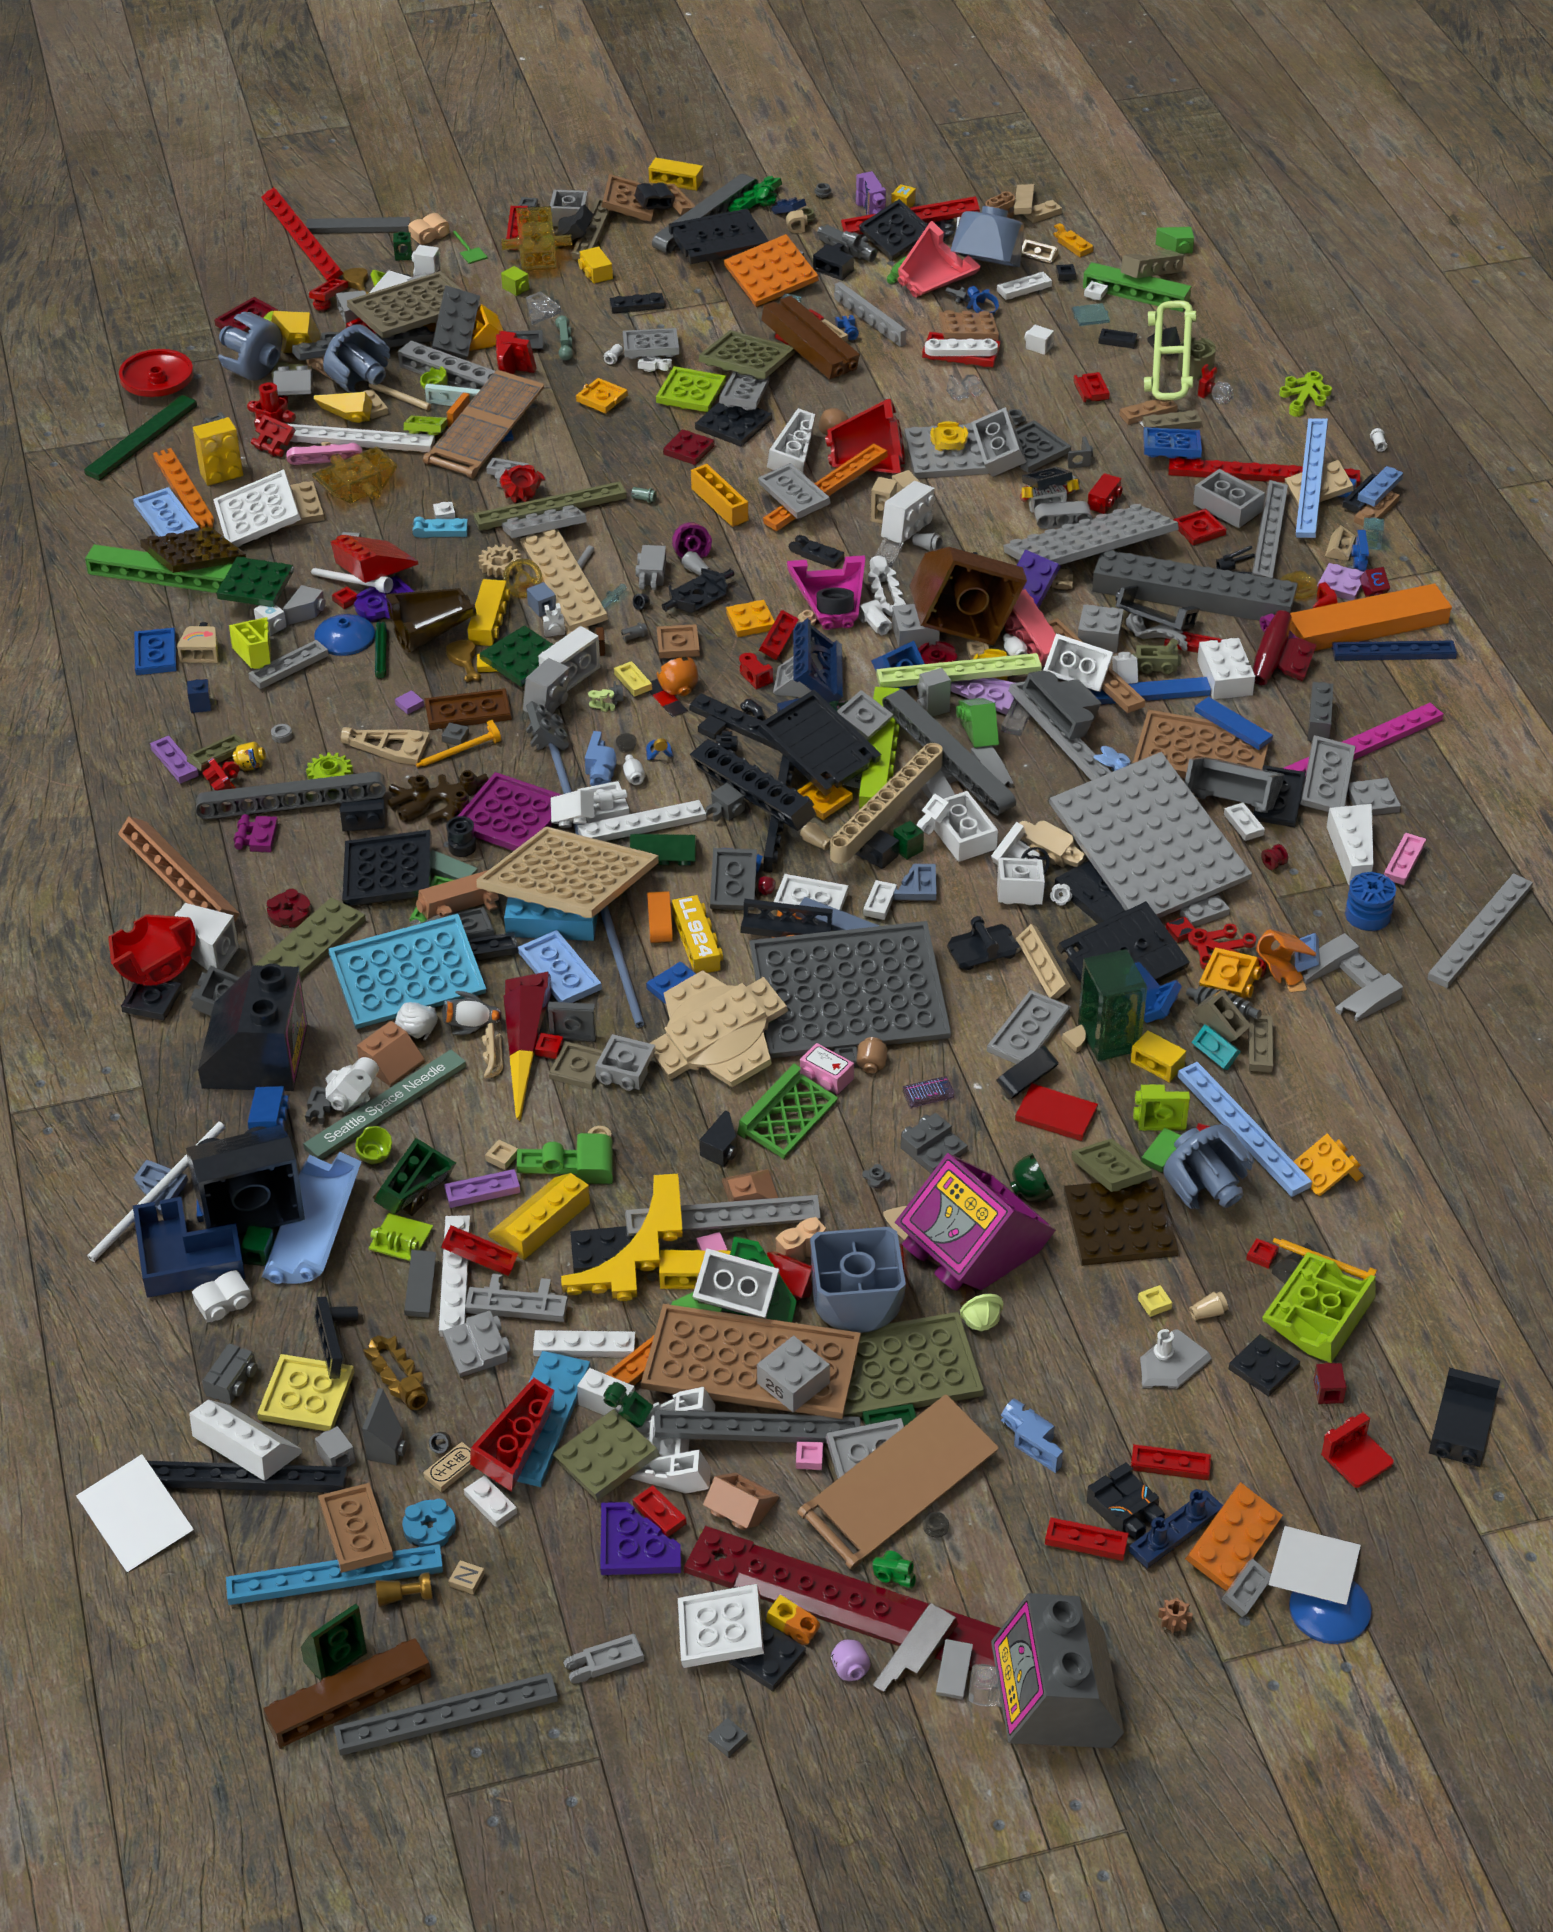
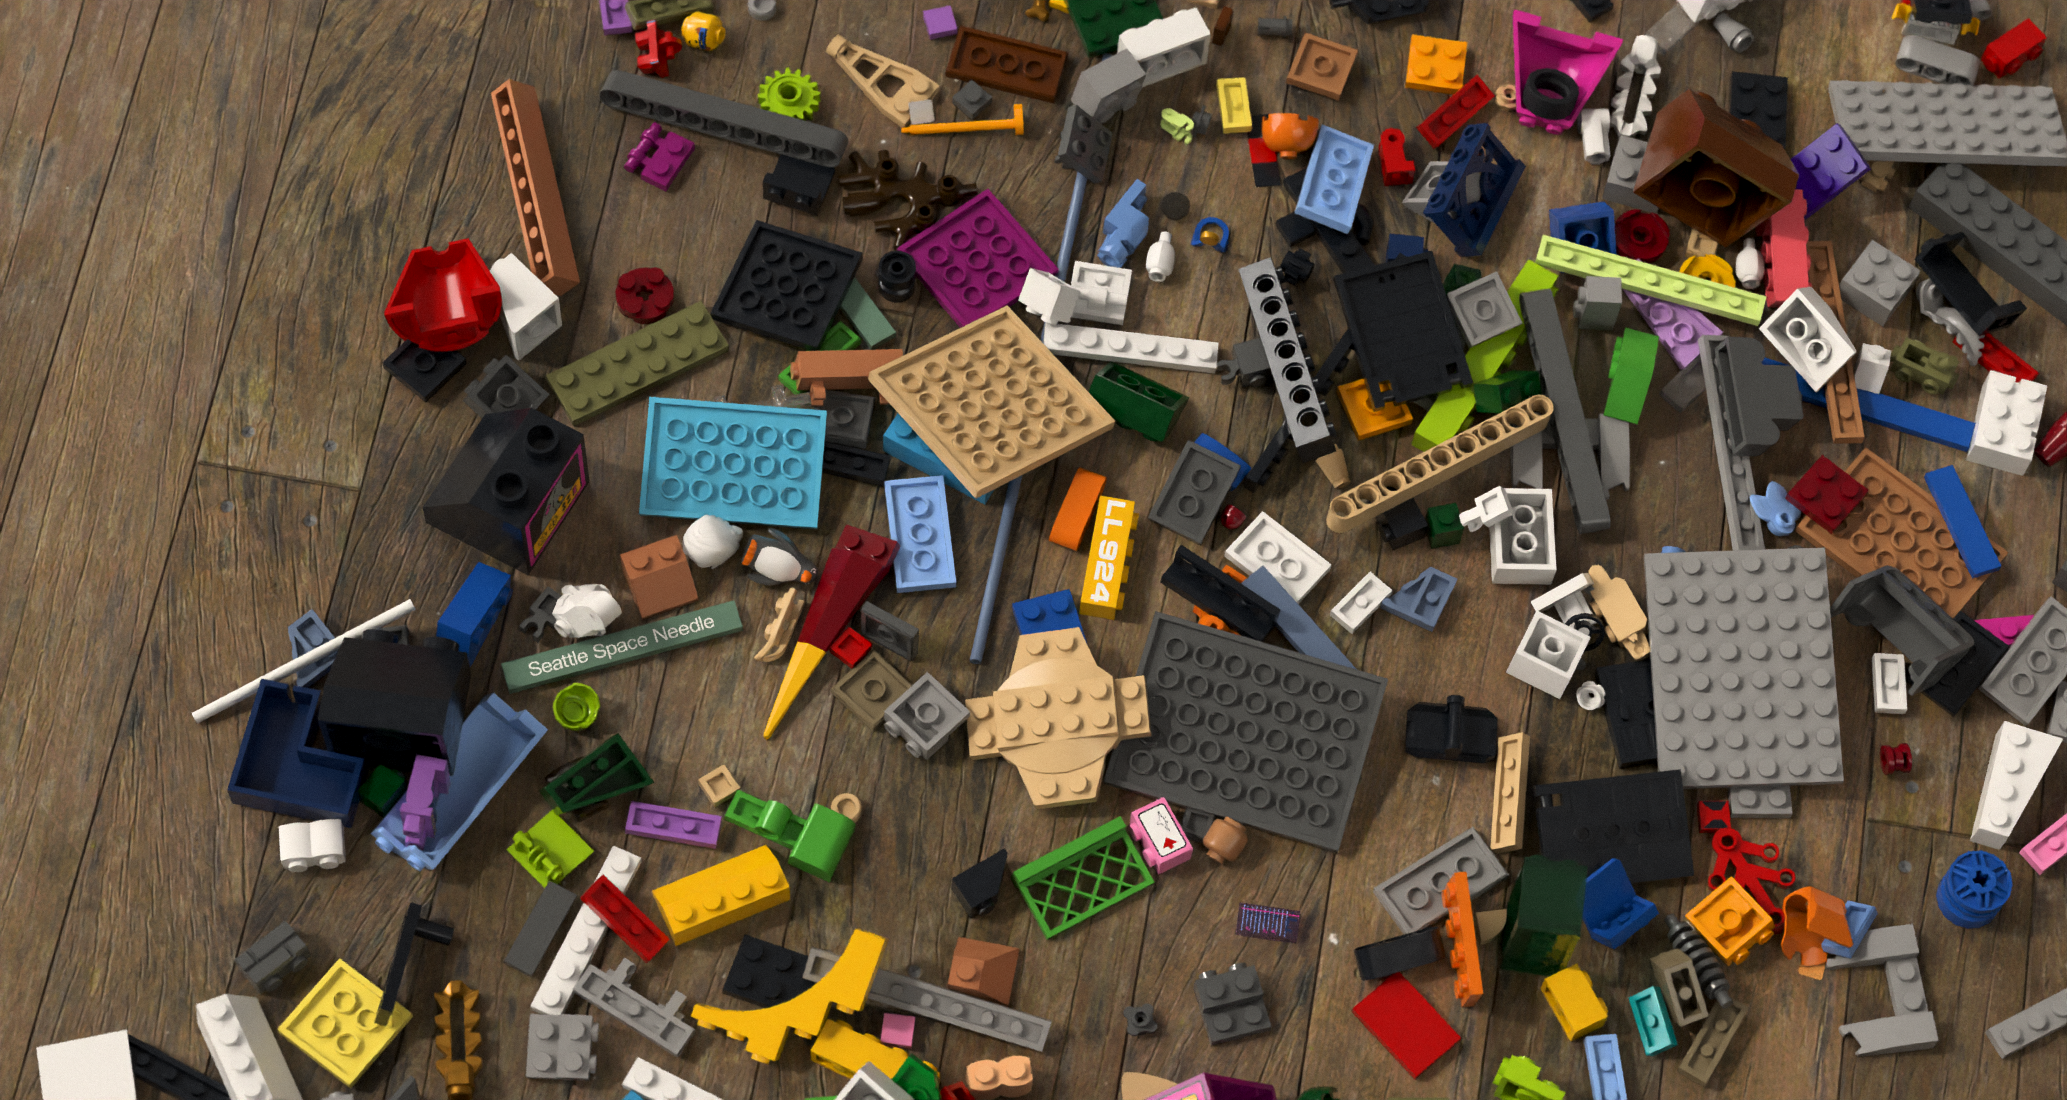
camera: 20 degrees right, 20 degrees up
(294, 1228) = (419, 813): none -> medium lavender hips
(424, 750) = (921, 112): none -> white sticker
(723, 690) = (1334, 179): none -> light blue plate
(903, 753) = (1506, 390): none -> dark green brick
(1066, 1043) = (1462, 931): none -> orange plate
(1140, 738) = (1827, 494): none -> dark red plate

